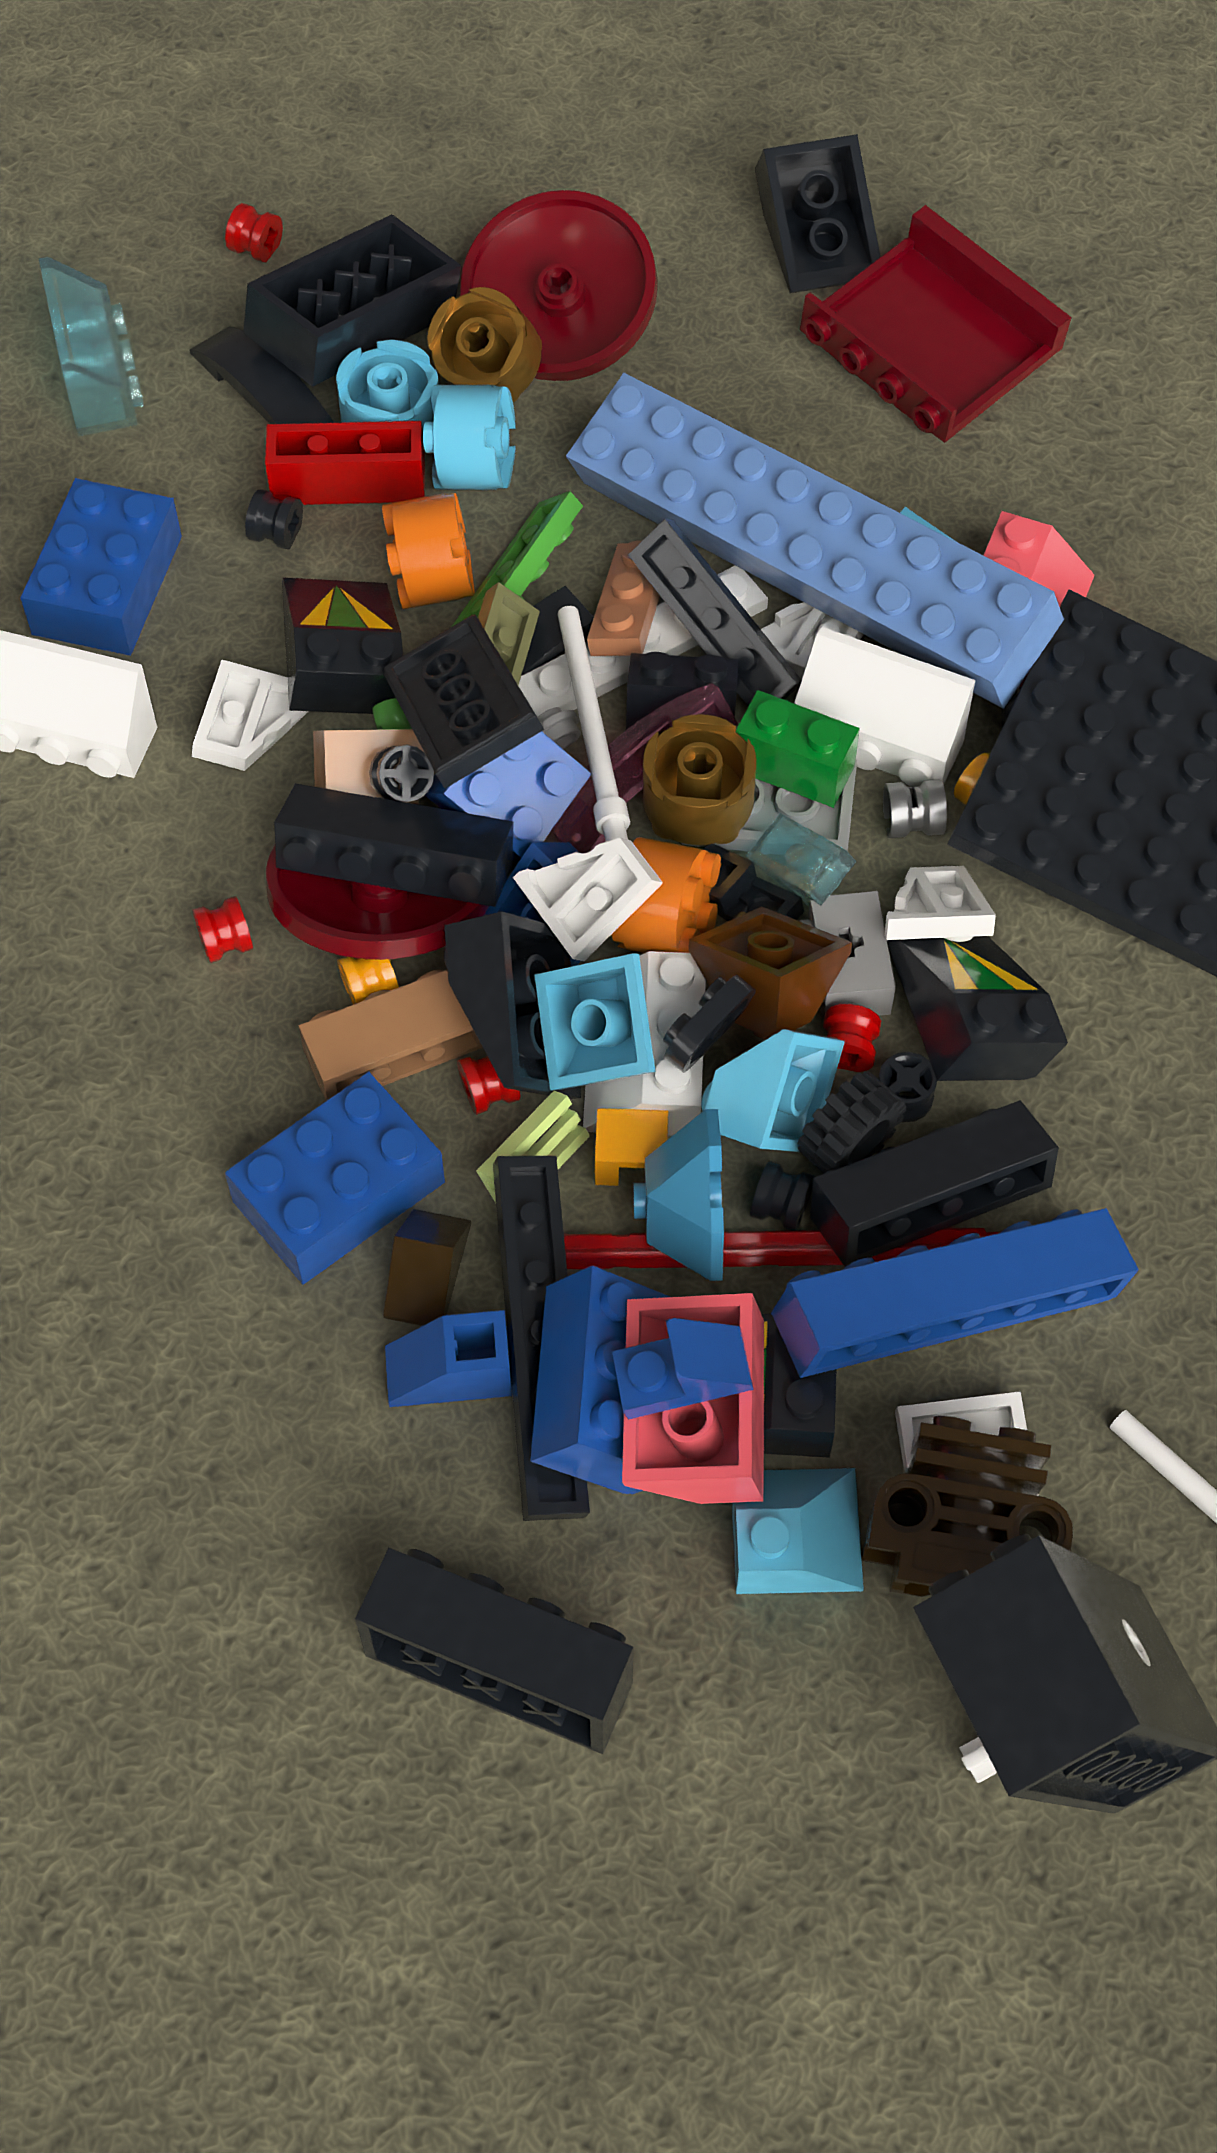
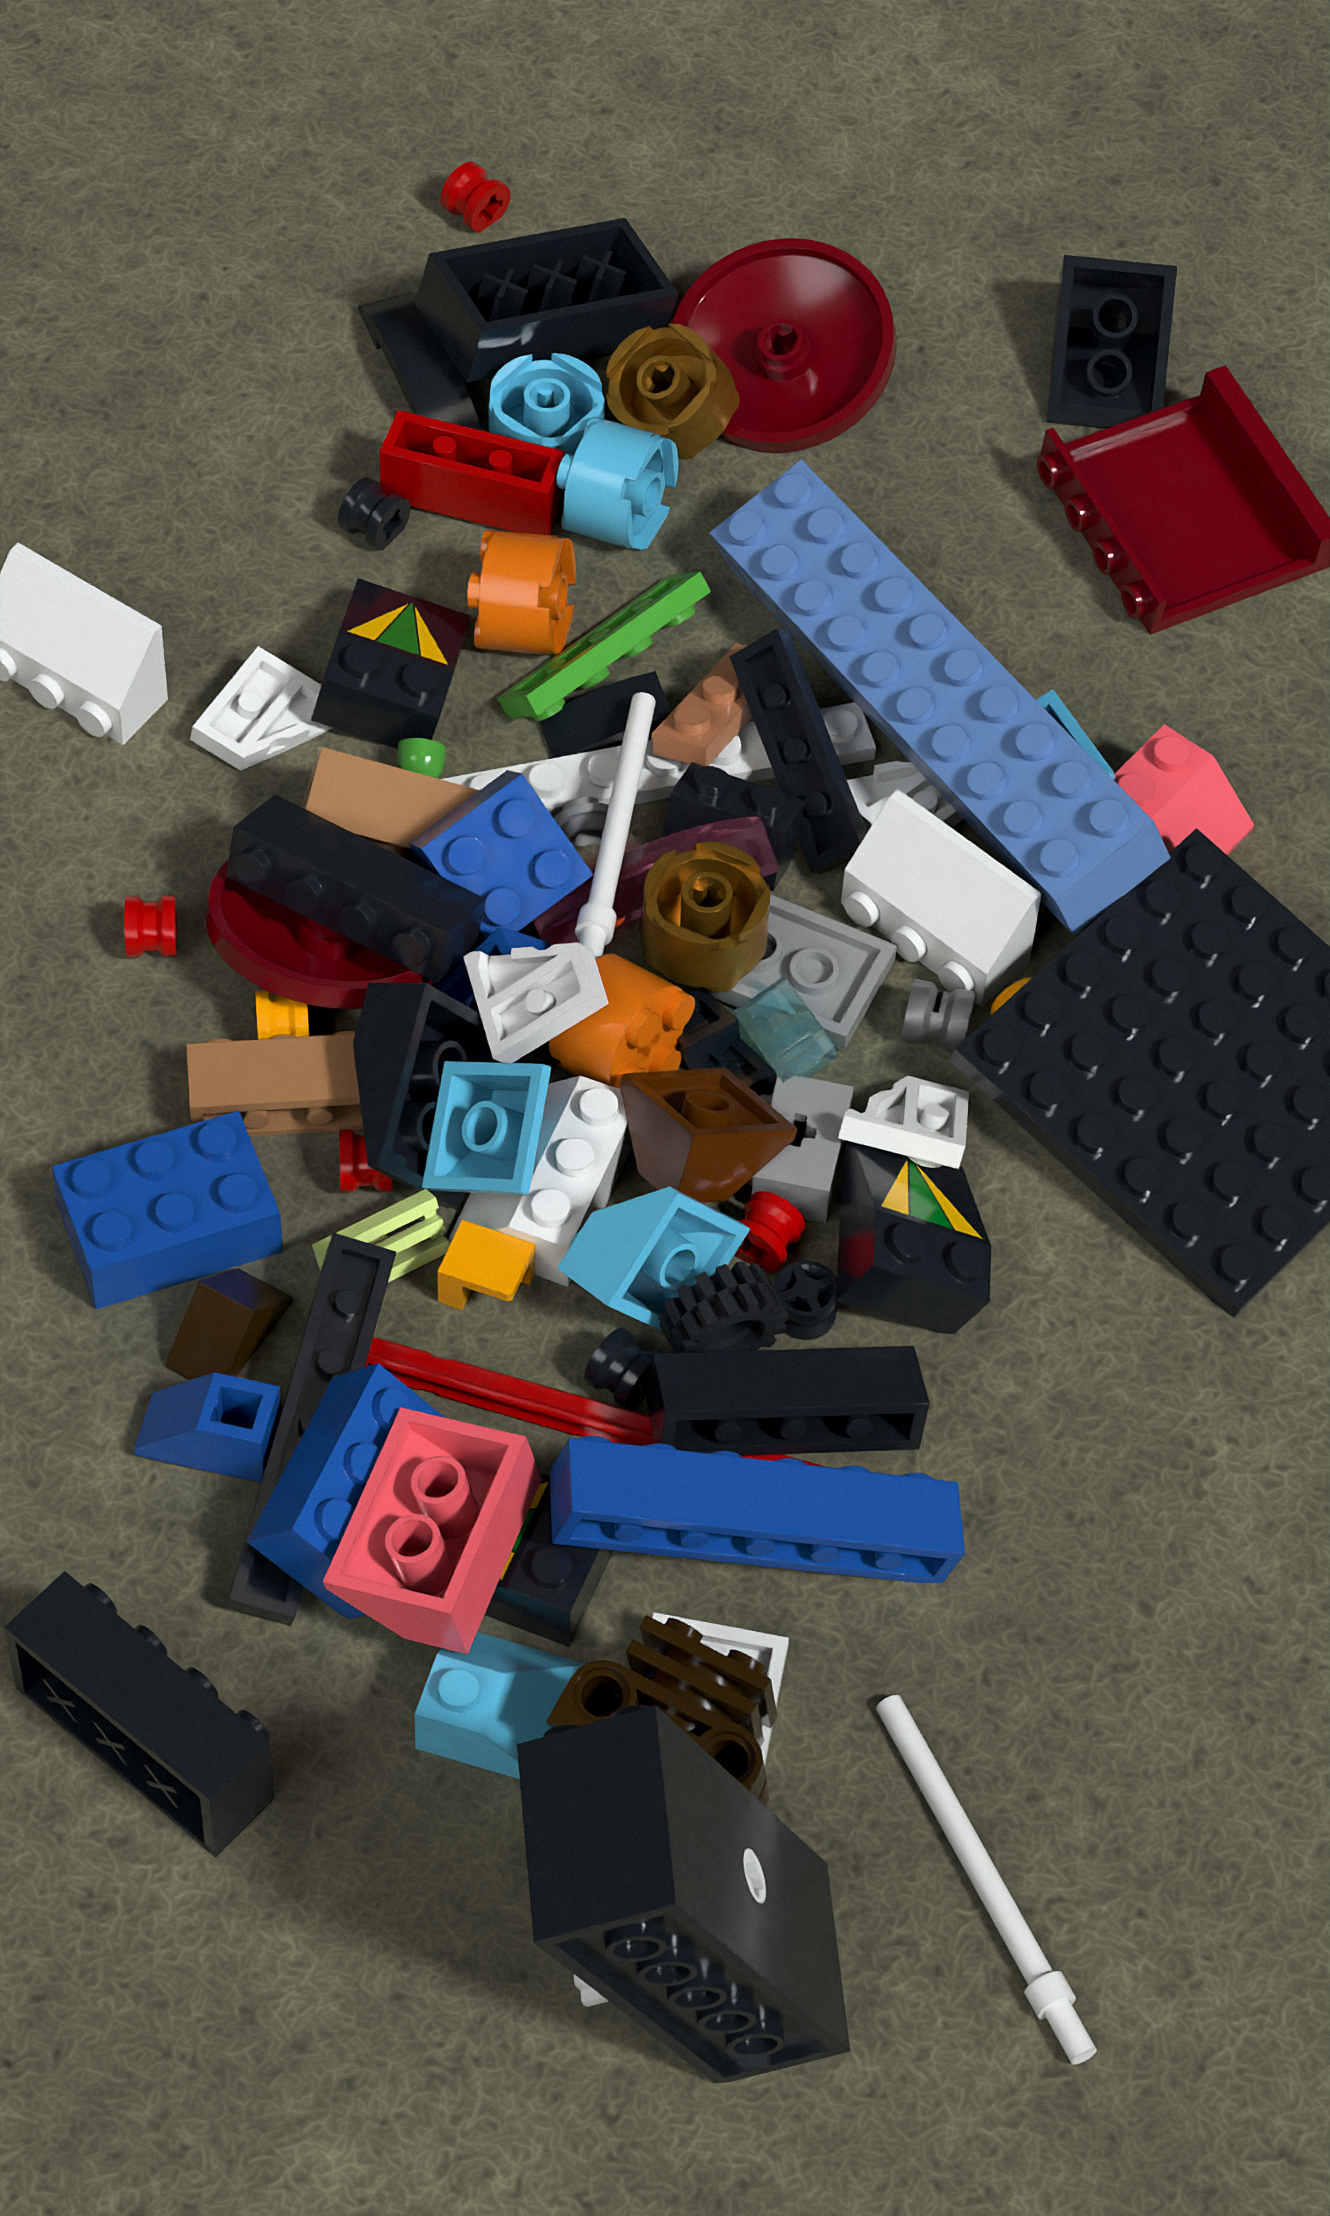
camera: 15 degrees right, 5 degrees down
(90, 349) = (246, 277): clear light blue slope -> none
(102, 566) = (171, 513): blue brick -> none
(412, 773) = (398, 819): black wheel -> none
(461, 701) = (476, 756): black tile -> none
(509, 626) = (557, 707): olive slope -> none
(685, 1197) = (516, 1334): dark azure slope -> none
(687, 1368) = (428, 1487): blue slope -> none
(694, 1036) = (619, 1156): black plate -> none
(799, 748) = (828, 913): green brick -> none

